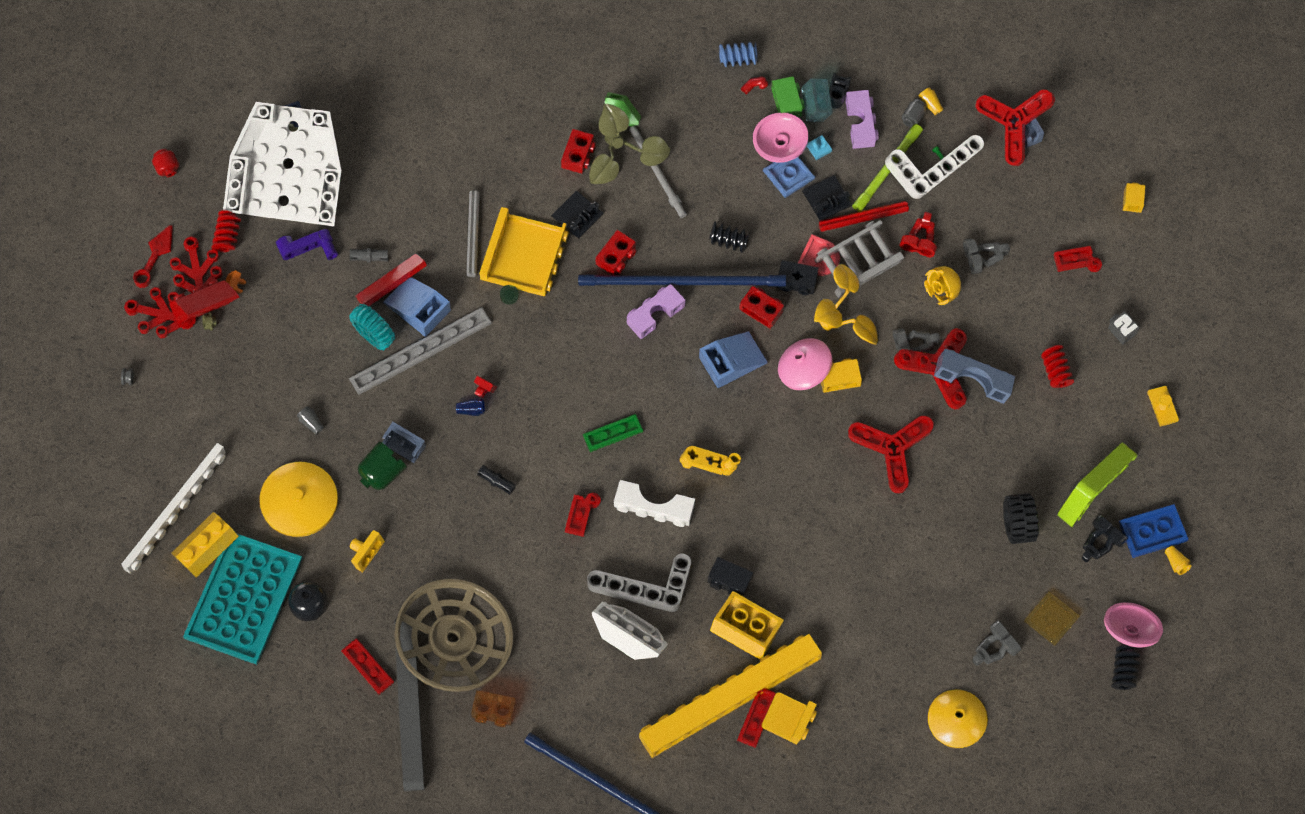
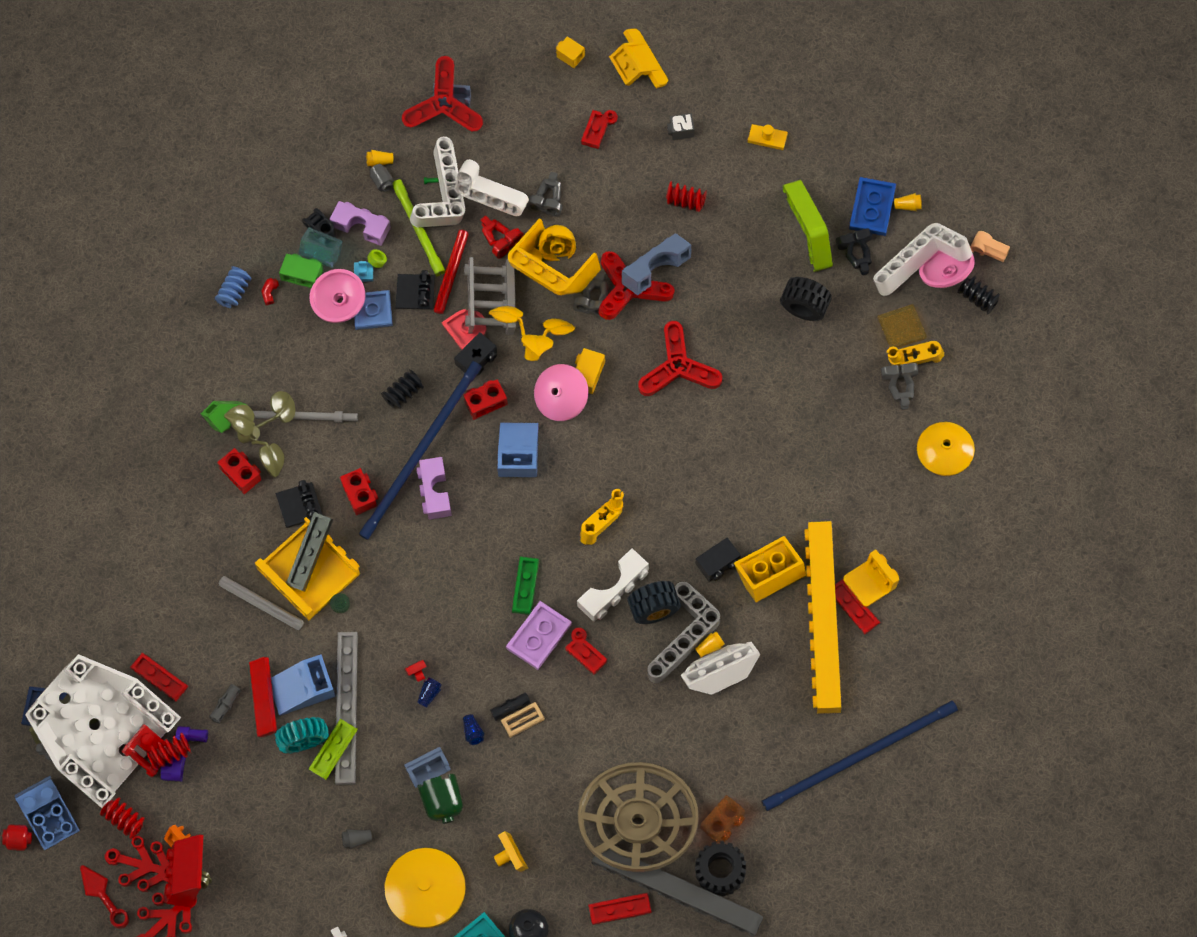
camera: 55 degrees left, 0 degrees up
(199, 173) = (46, 812): none -> medium blue slope
(296, 232) = (168, 751): none -> red piece
(299, 217) = (143, 738): none -> red plate
(363, 192) = (159, 677): none -> red tile
(376, 359) = (333, 749): none -> lime tile
(452, 744) = (725, 852): none -> black tyre
(456, 461) = (472, 730): none -> clear blue cone
(504, 504) = (522, 728): none -> tan tile
(536, 243) = (309, 551): none -> pearl dark grey plate
(573, 467) = (538, 635): none -> lavender plate
(648, 613) = (710, 644): none -> yellow cone
(654, 543) = (654, 602): none -> black wheel
(837, 150) = (377, 258): none -> lime tile
(912, 267) = (528, 260): none -> yellow windscreen
(952, 201) = (488, 192): none -> white beam
(1035, 652) = (924, 351): none -> yellow beam
(1127, 592) = (917, 252): none -> white beam
(1164, 257) = (637, 59): none -> yellow plate
(1179, 653) = (986, 245): none -> light nougat piece

